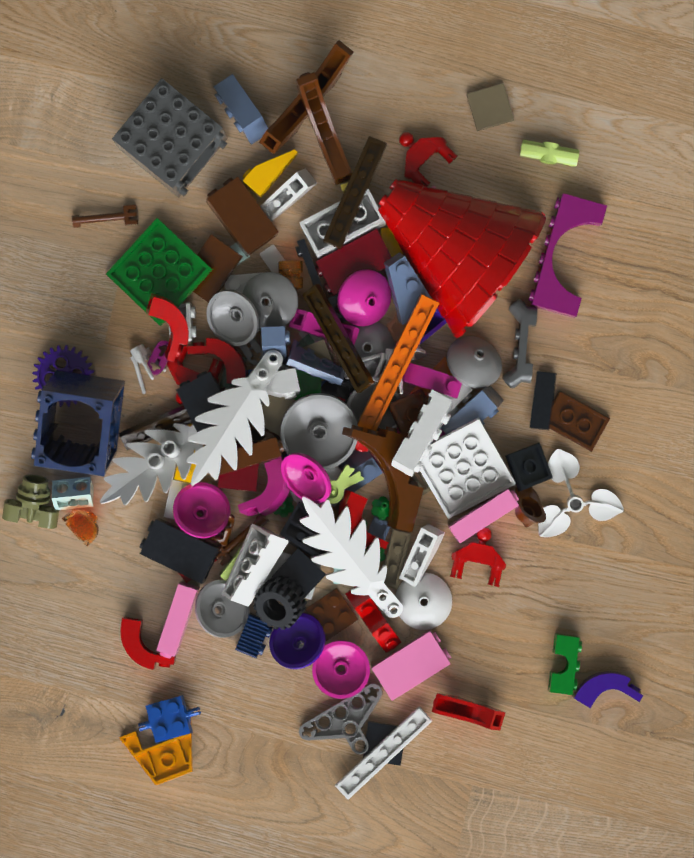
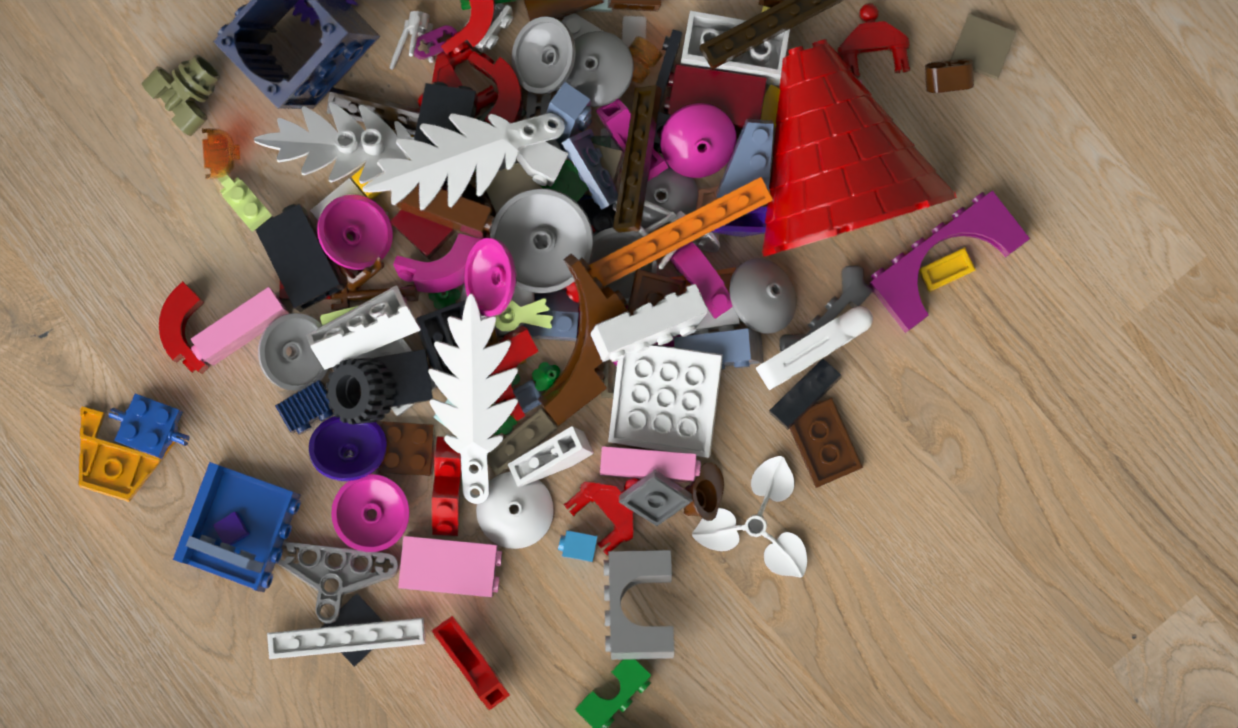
camera: 35 degrees right, 5 degrees down
(72, 493) = (234, 112): light aqua brick -> none
(121, 543) = (244, 202): none -> yellowish green hinge
(266, 741) = (231, 529): none -> dark purple tile
(269, 737) = (262, 508): none -> blue panel
(274, 759) = (225, 552): none -> sand blue plate
(478, 594) = (578, 546): none -> dark azure brick
(484, 141) = (949, 76): none -> reddish brown beam
(503, 532) = (655, 498): none -> dark grey tile
(529, 369) = (815, 346): none -> white piece
(529, 466) = (736, 452): black tile -> none
(549, 153) = (1009, 139): yellowish green piece -> none
(549, 627) = (626, 638): none -> light grey arch
(570, 260) = (946, 269): none -> yellow tile

